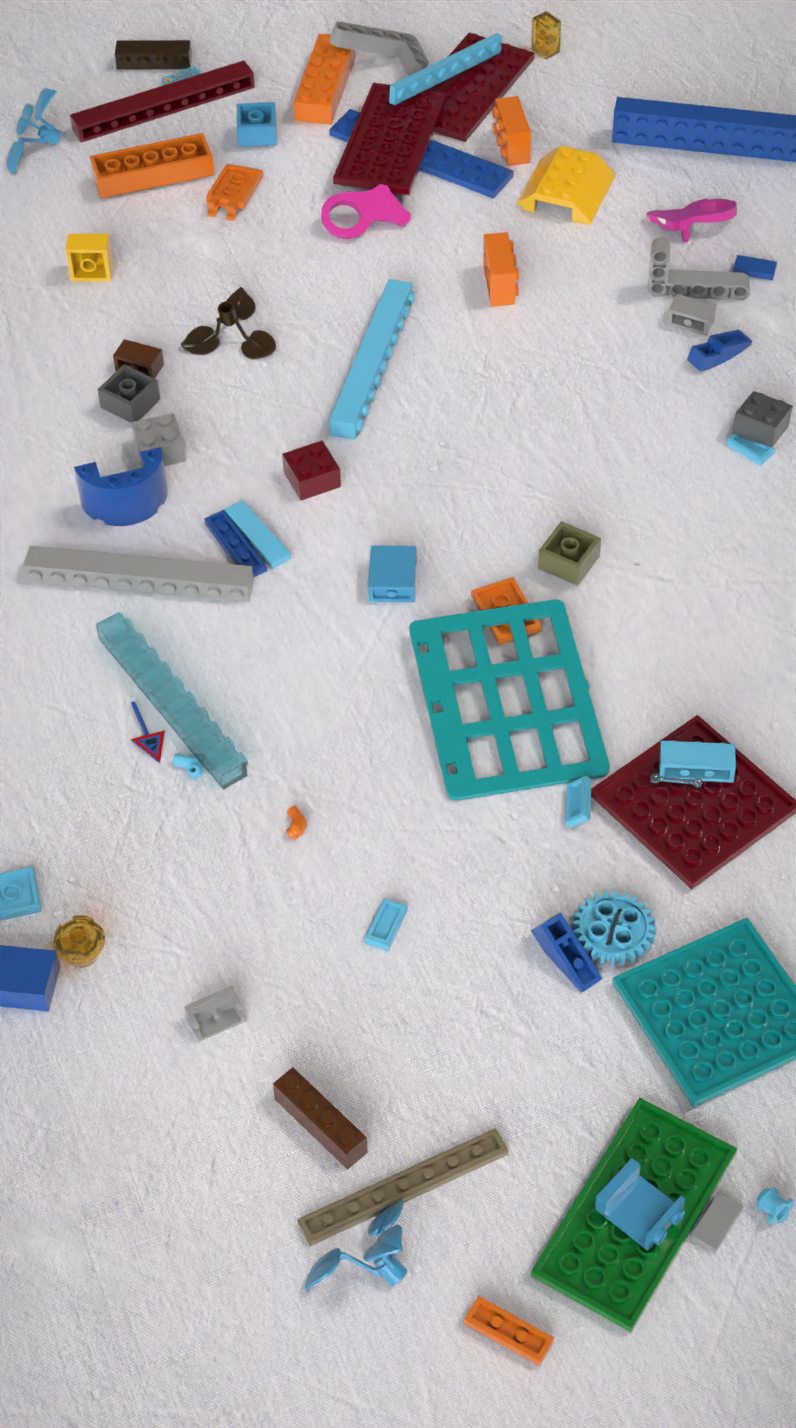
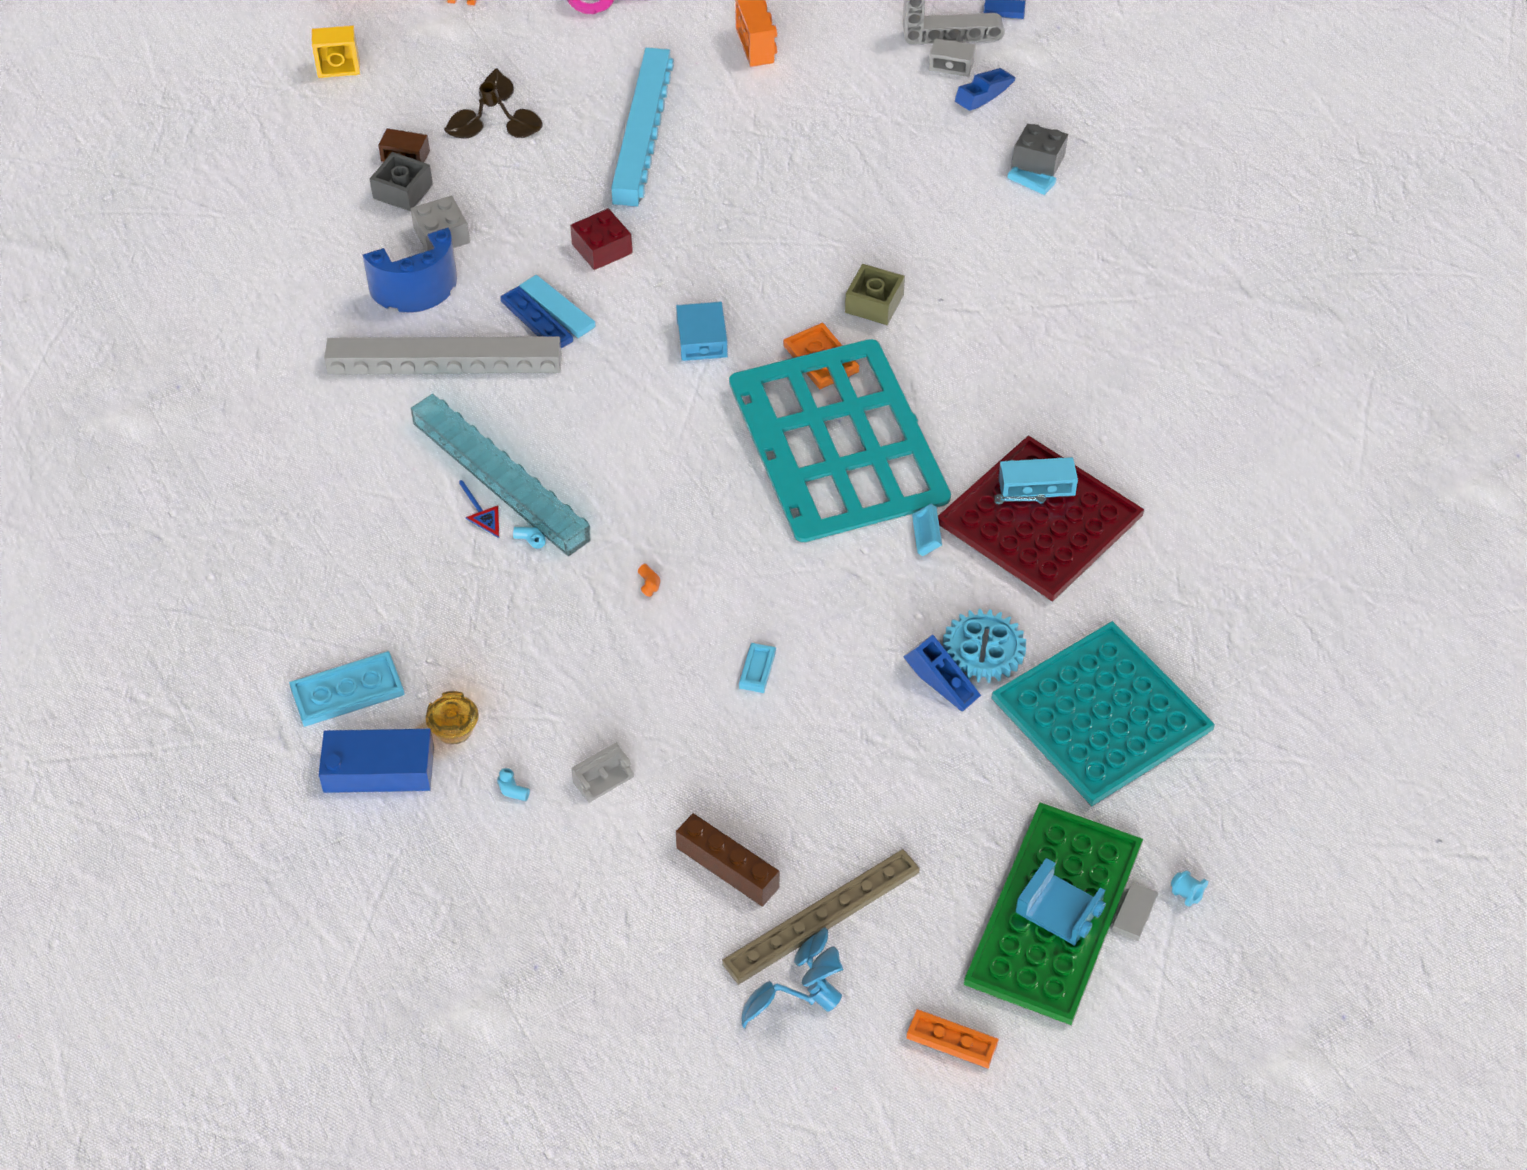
camera: 10 degrees left, 0 degrees up
(123, 1016) = (508, 786): none -> medium azure arm

